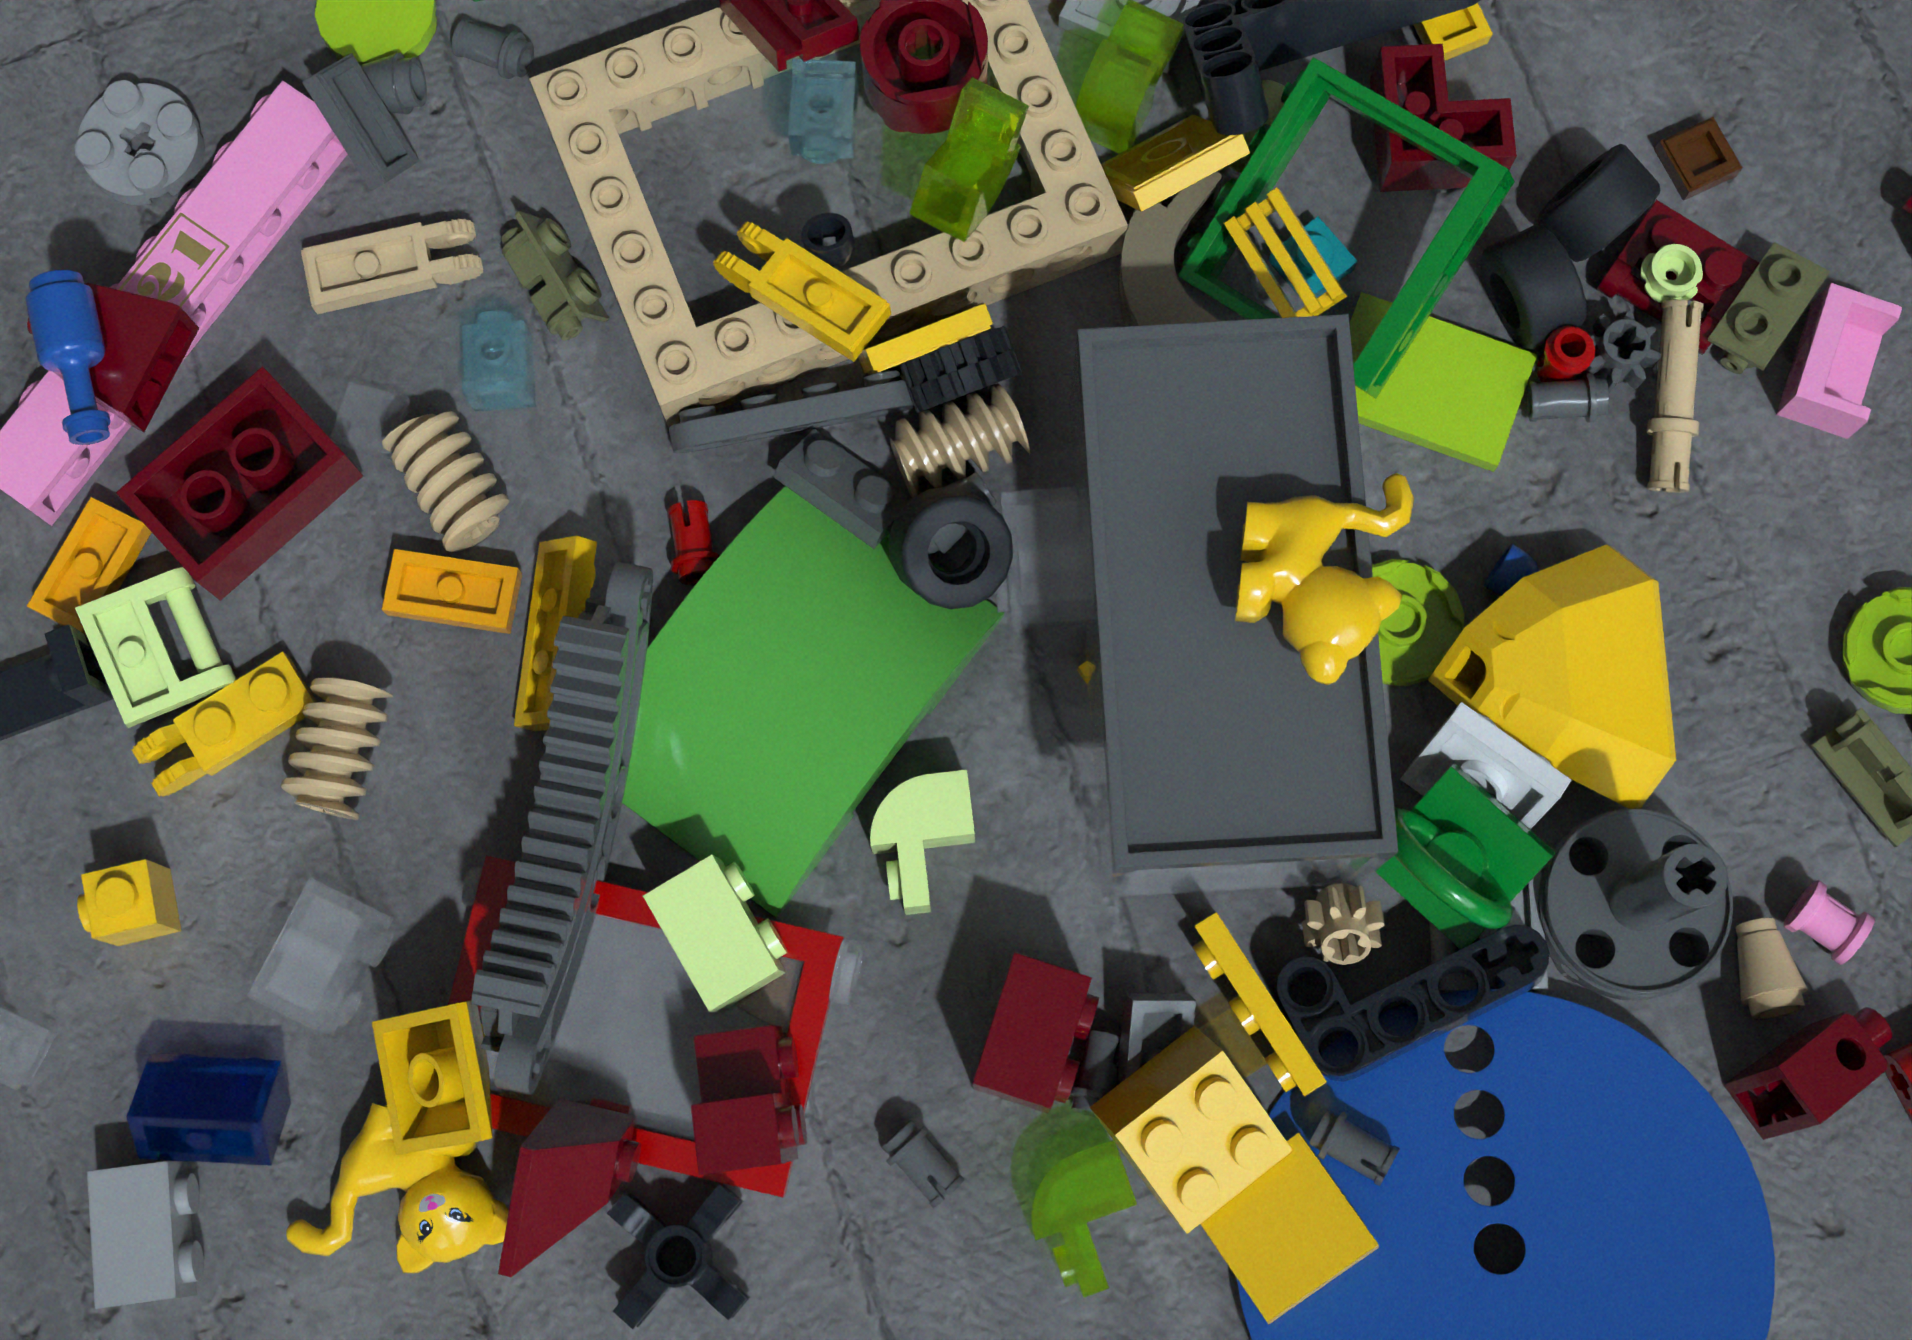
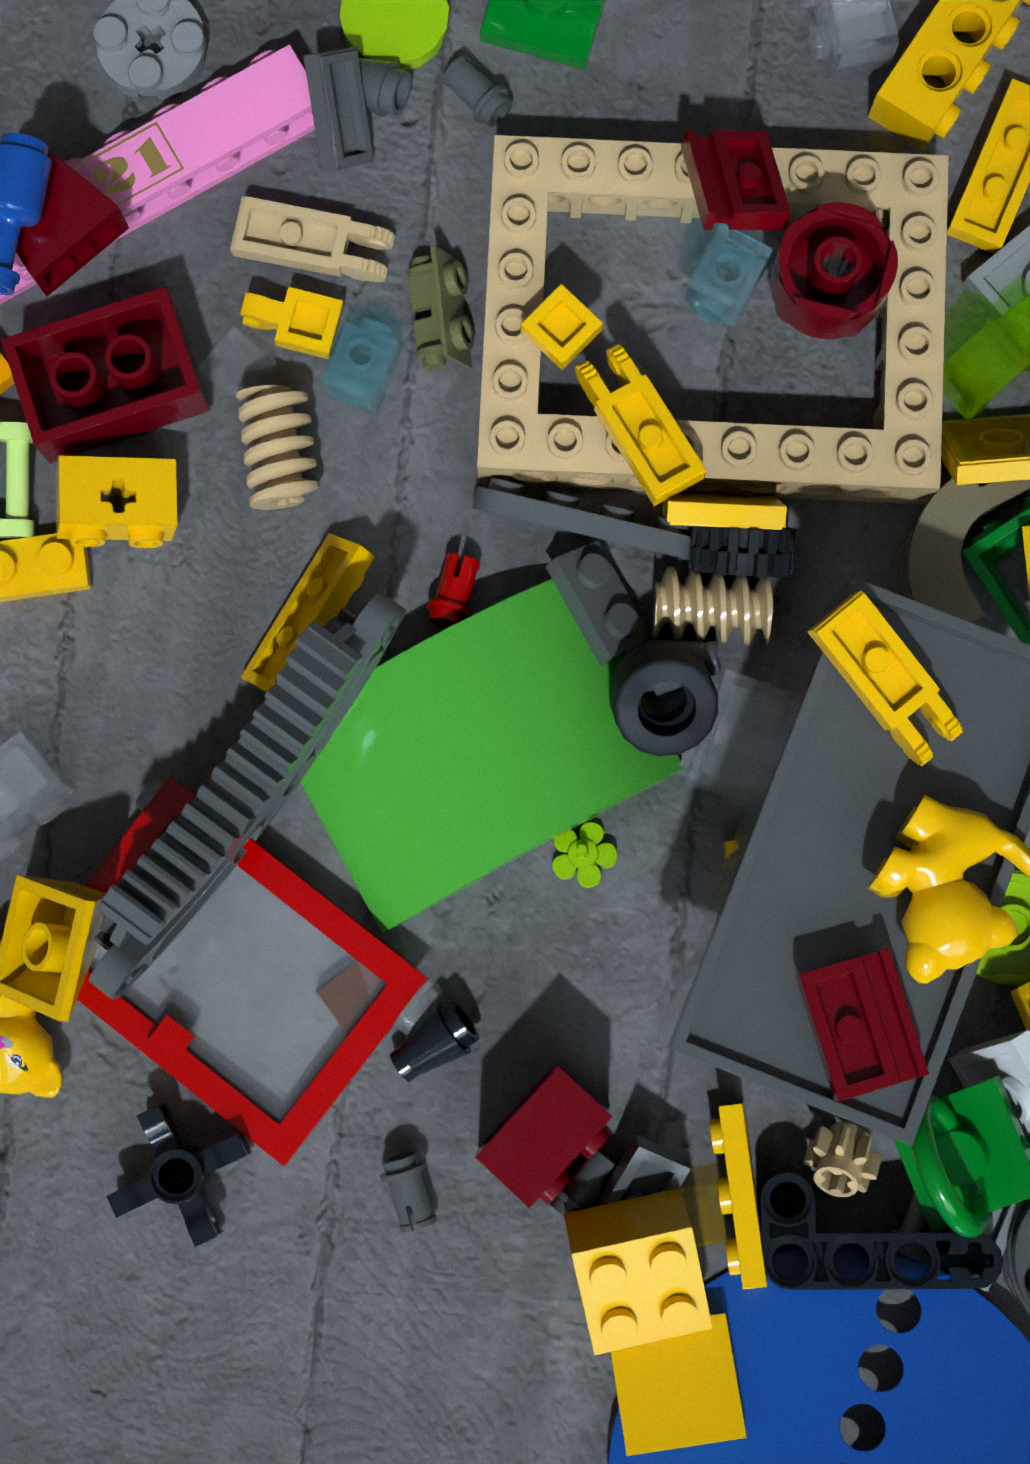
camera: 25 degrees right, 5 degrees up
(324, 577) = (143, 486): none -> yellow brick
(335, 745) = (88, 630): tan piece -> none
(418, 346) = (303, 321): none -> yellow plate
(452, 591) = (239, 542): light orange plate -> none
(565, 1176) = (116, 1073): dark red slope -> none
(681, 230) = (561, 326): none -> yellow plate
(717, 933) = (326, 930): yellowish green brick -> none
(746, 1100) = (284, 1089): dark red brick -> none
(826, 226) = (686, 378): black hinge -> none
(880, 999) = (435, 1041): none -> black cone
(918, 816) = (535, 906): yellowish green brick -> none
(944, 744) = (583, 855): none -> lime plant
(972, 163) = (831, 379): clear neon green brick -> none
(1070, 1196) = (514, 1276): clear neon green brick -> none
(1155, 407) = (884, 674): none -> yellow hinge
(1292, 754) = (862, 1025): none -> dark red plate
(1353, 1146) = (764, 1347): dark grey pin -> none

